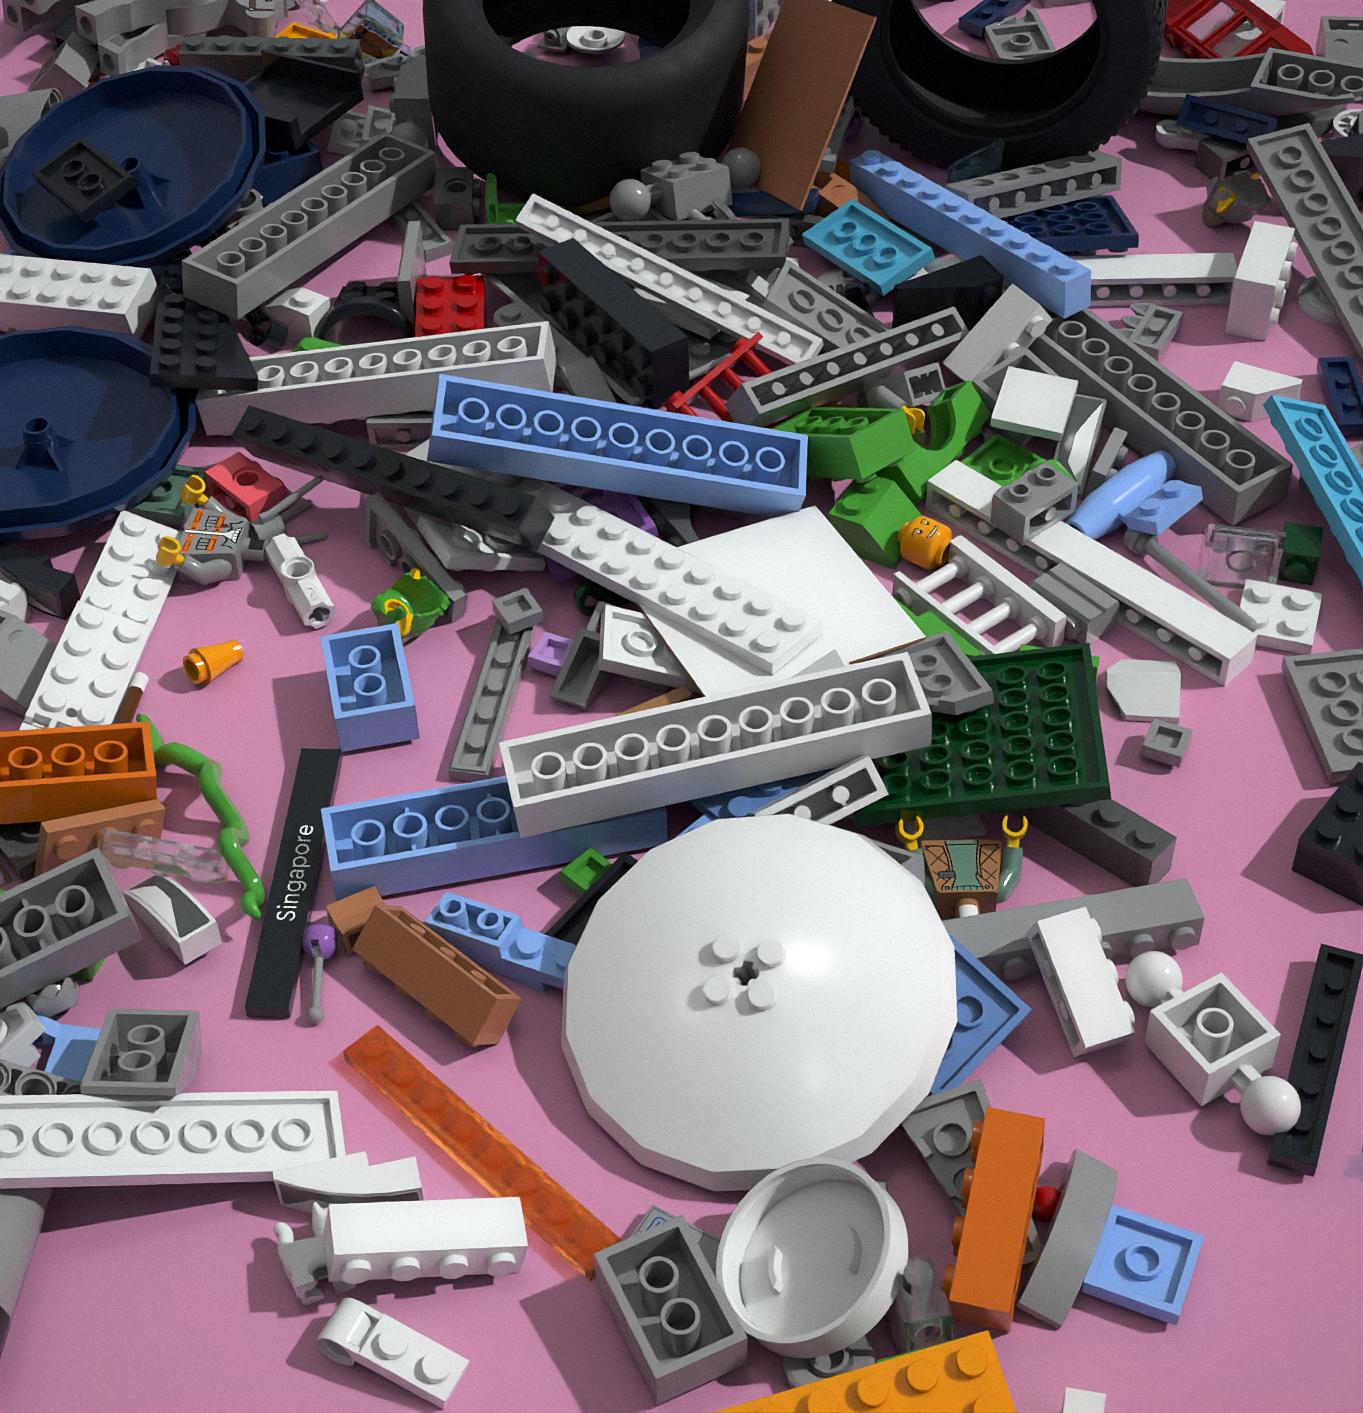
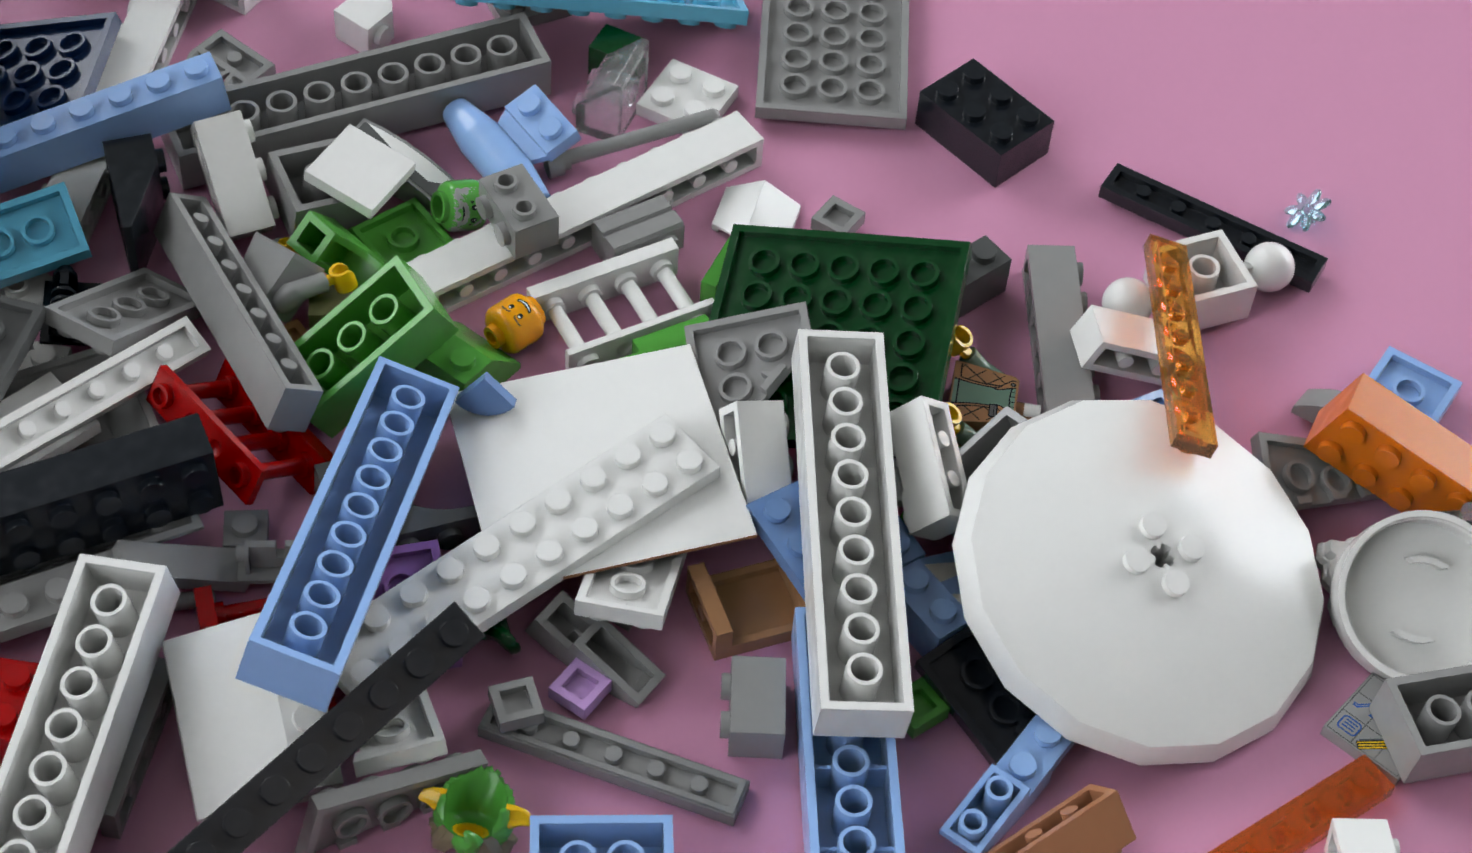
camera: 85 degrees left, 5 degrees up
(808, 519) = (486, 397): none -> medium blue tile
(1042, 967) = (1179, 348): none -> clear orange plate
(1112, 455) = (444, 152): light grey plate -> none

